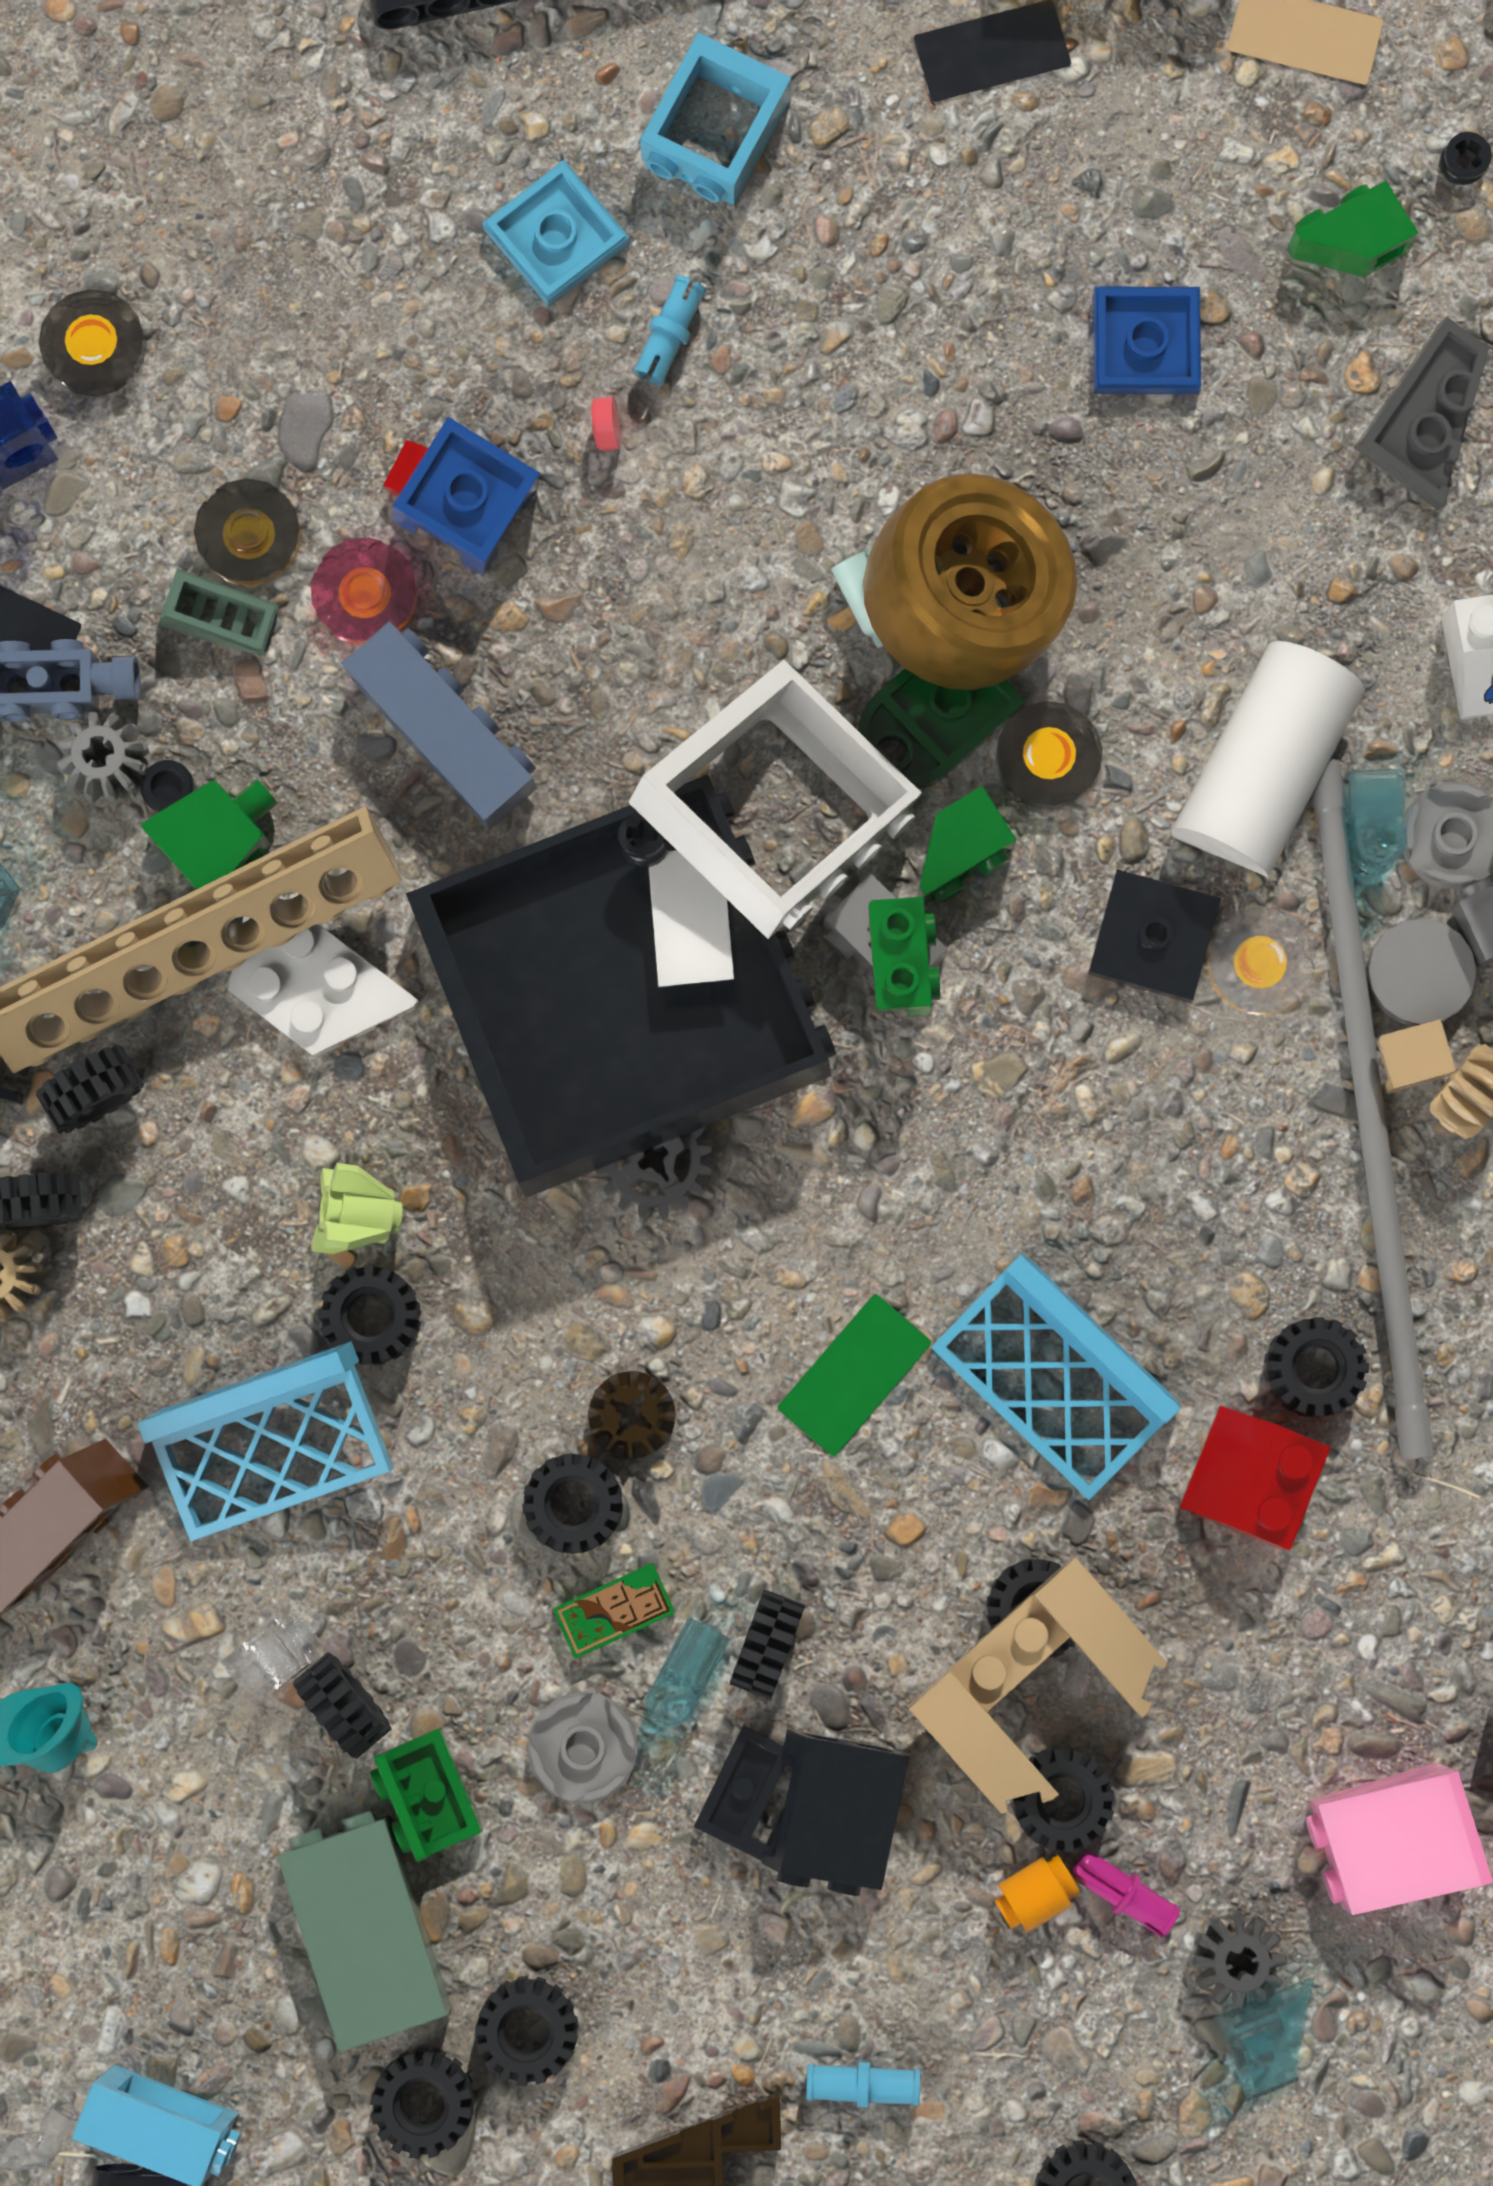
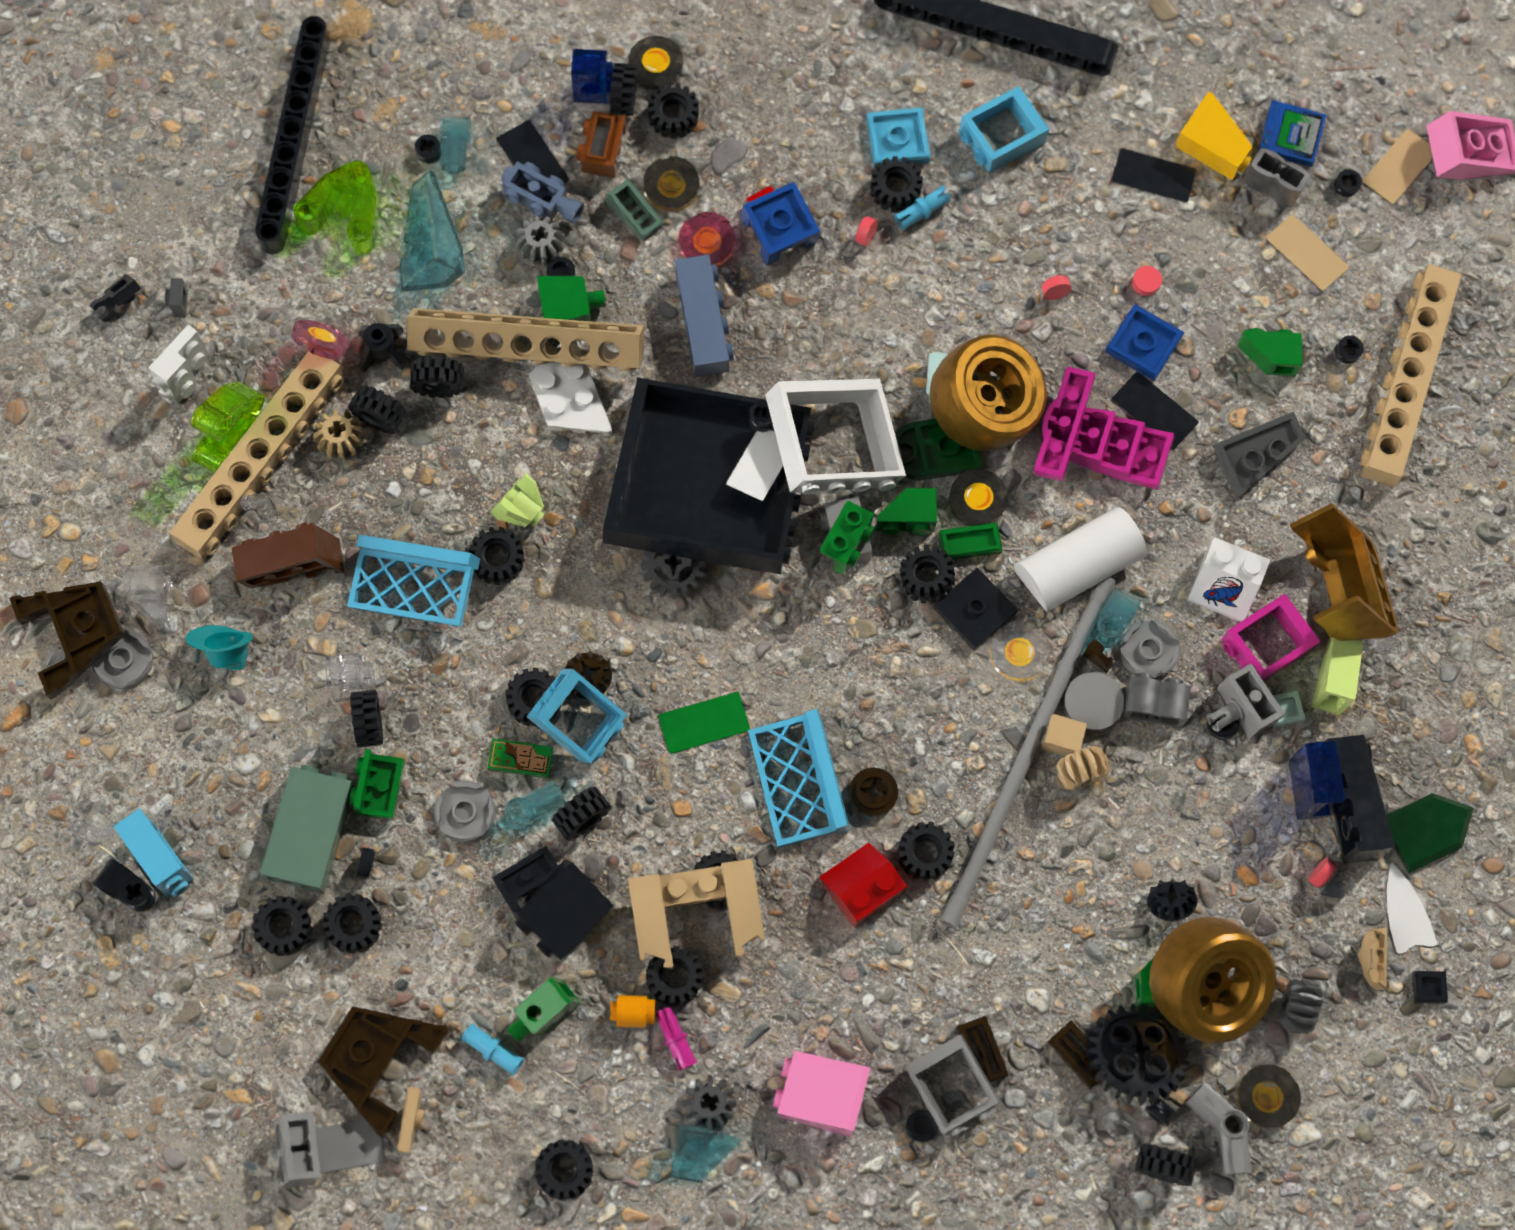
camera: 25 degrees right, 10 degrees down
(73, 424) = (623, 89): none -> black tyre
(97, 534) = (602, 143): none -> dark orange window
(166, 378) = (673, 95): none -> black tyre
(487, 1926) = (365, 863): none -> black tile
(603, 285) = (896, 169): none -> black tyre
(615, 1491) = (554, 697): none -> medium azure window
(910, 1964) = (555, 1002): none -> green torso
(959, 335) = (1056, 287): none -> coral tile
(1044, 898) = (927, 559): none -> black tyre
(1079, 832) = (971, 541): none -> green tile
(1089, 236) = (1146, 280): none -> coral tile
(1175, 545) = (1098, 438): none -> dark pink slope
(1188, 1299) = (885, 783): none -> dark brown gear
(1229, 441) = (1154, 408): none -> black sticker
(1381, 894) = (1095, 655): none -> dark brown tile

